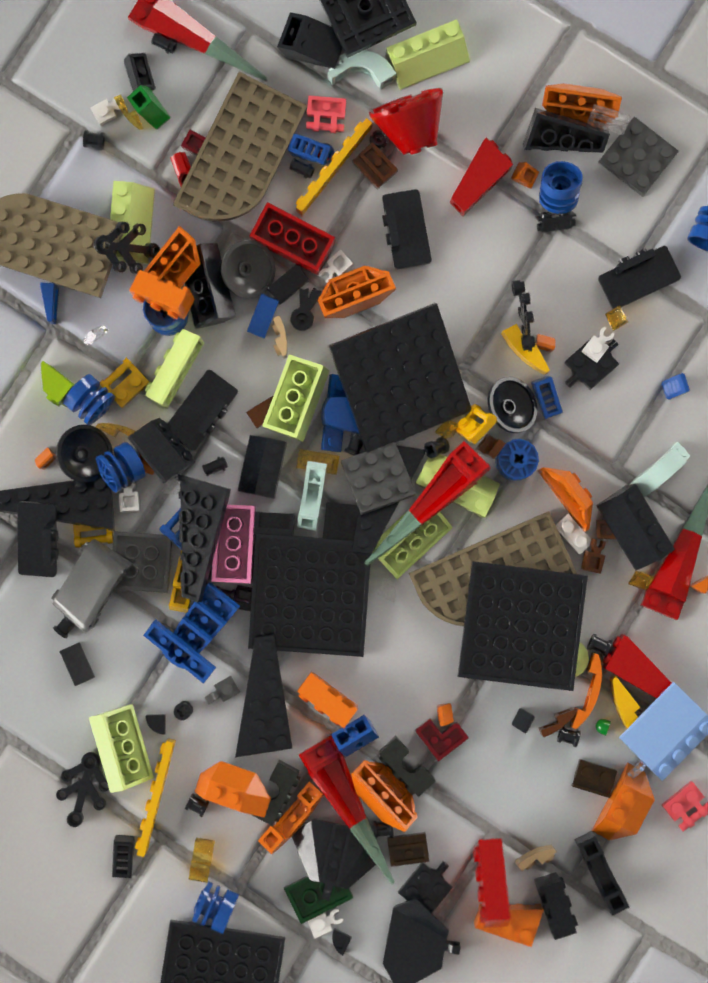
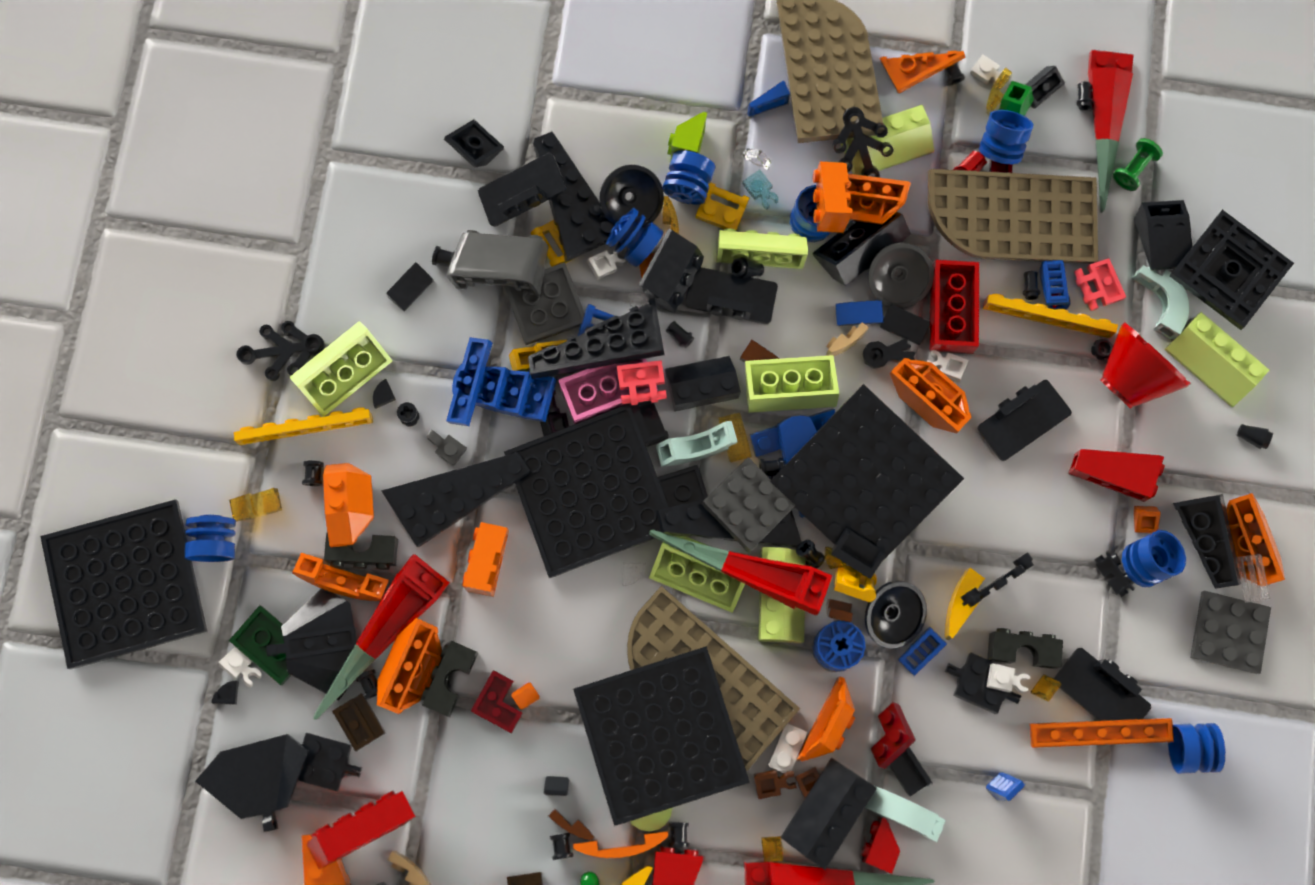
camera: 60 degrees right, 10 degrees down
(45, 459) = (606, 164): orange slope -> none
(77, 174) = (913, 69): none -> orange wing
(120, 345) = (760, 186): none -> clear light blue plate
(126, 844) = (239, 415): black slope -> none
(172, 127) = (1006, 137): none -> blue wheel
(185, 389) = (746, 268): none -> black cone
(239, 514) = (641, 375): none -> coral plate
(248, 43) = (1128, 177): none -> green hose
(355, 735) = (459, 606): blue brick -> none
(375, 165) = (1073, 357): reddish brown plate -> none
(454, 411) = (858, 553): none -> black panel
(501, 56) = (1255, 435): none -> black cone
(545, 343) = (979, 621): orange slope -> none
(589, 304) = (1045, 650): none -> pearl dark grey arch
(603, 448) = (896, 738): none -> dark red plate
(628, 452) = (910, 772): none -> black panel
(668, 293) = (1101, 732): none -> orange tile
(678, 499) = (882, 848): none -> red slope

